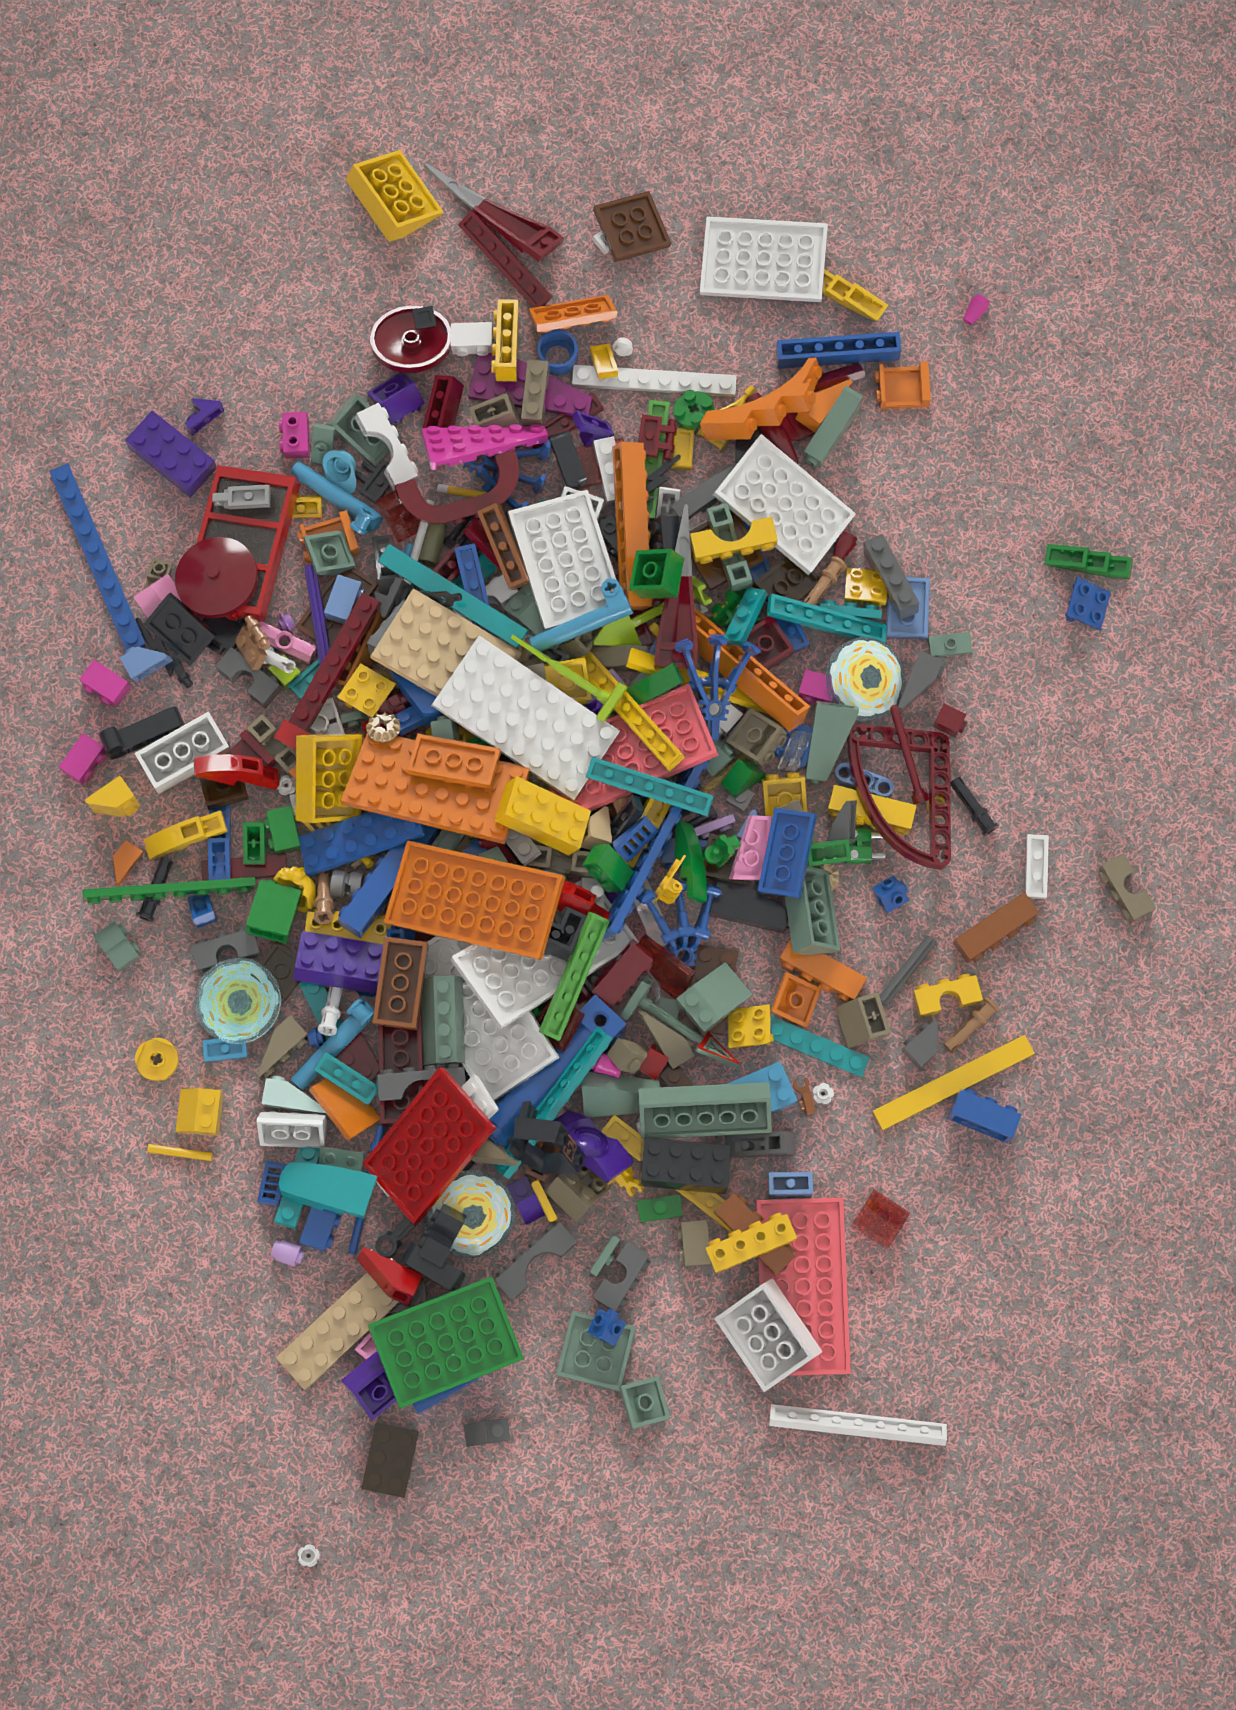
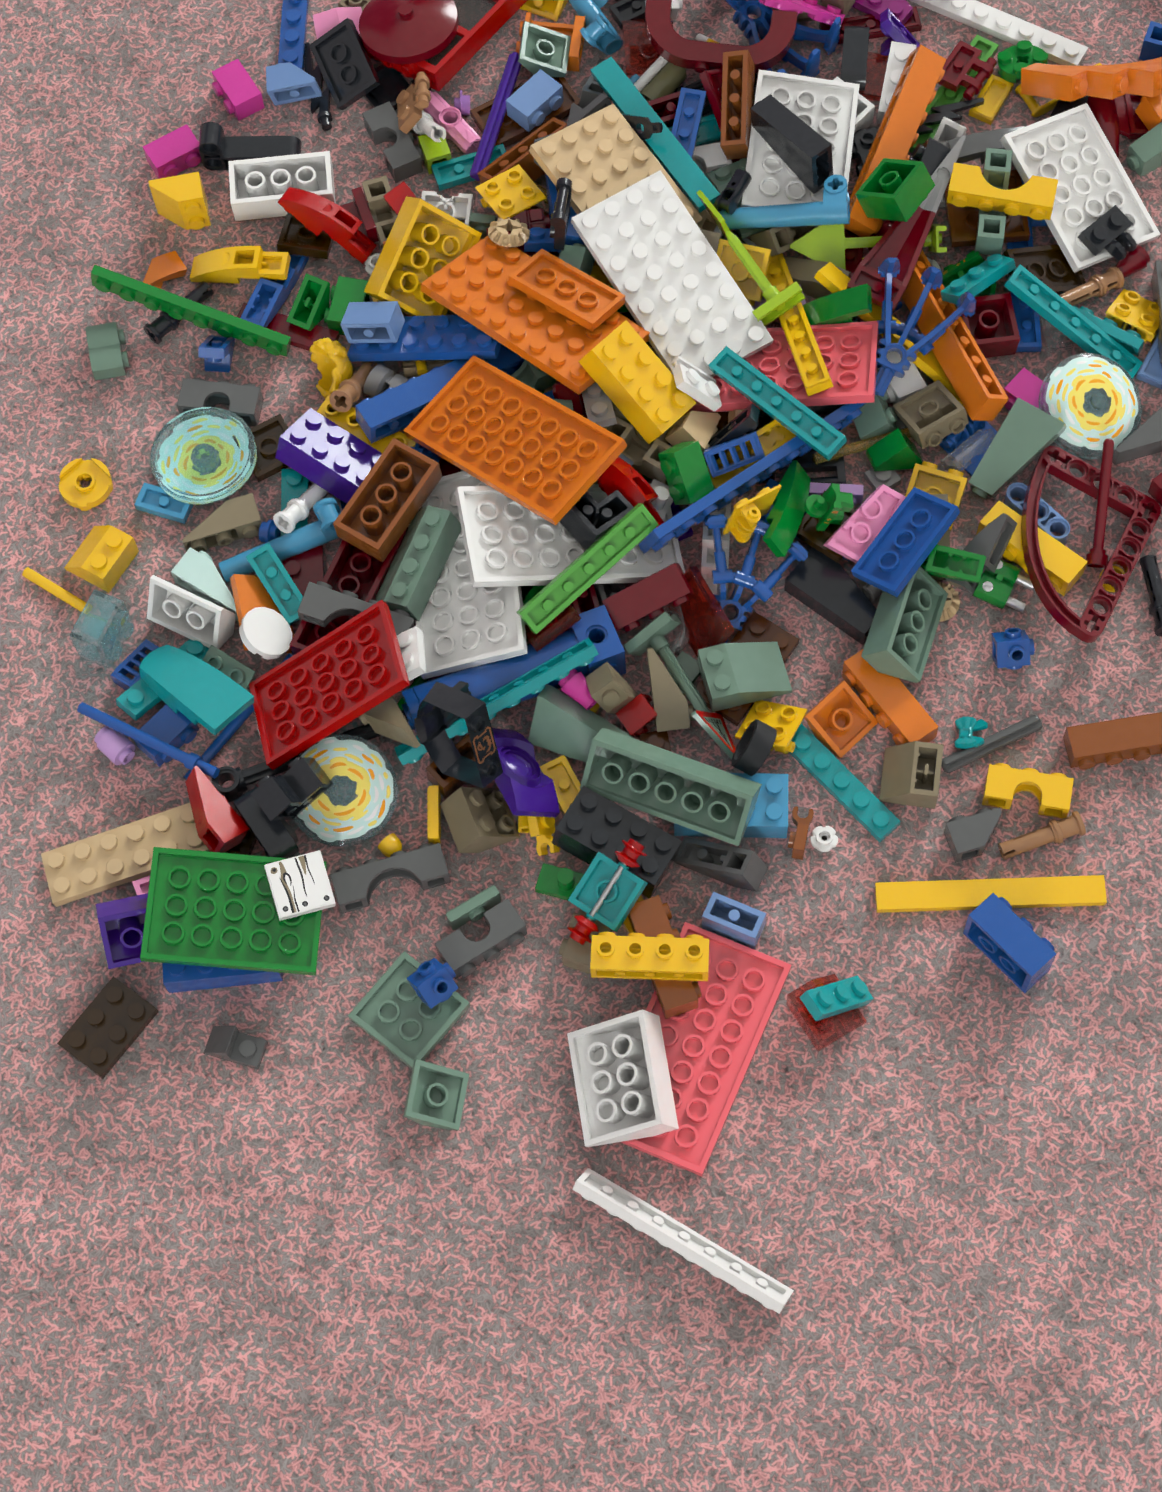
camera: 30 degrees right, 10 degrees down
(234, 1171) = (102, 629): none -> clear light blue brick
(273, 911) = (290, 378): green brick -> none
(315, 843) = (372, 322): none -> medium blue brick
(335, 662) = (494, 152): dark red plate -> none
(355, 1243) = (189, 760): none -> blue bar
(357, 1121) = (265, 633): none -> white tile
(419, 697) = (561, 213): none -> black plate
(483, 1303) = (299, 885): none -> white tile
(524, 1238) = (390, 845): none -> yellow hinge
(526, 1200) = (413, 807): dark purple slope -> none
(536, 620) = (733, 192): none -> black bar
(563, 564) = (794, 142): none -> black slope
(584, 796) = (696, 383): none -> white plate
(698, 1208) = (607, 891): none -> teal plate
(750, 1055) = (754, 747): none -> black tyre
(818, 532) = (1105, 231): none -> black hinge
(884, 965) = (966, 727): none -> teal piece
(886, 1210) = (836, 998): none -> teal plate

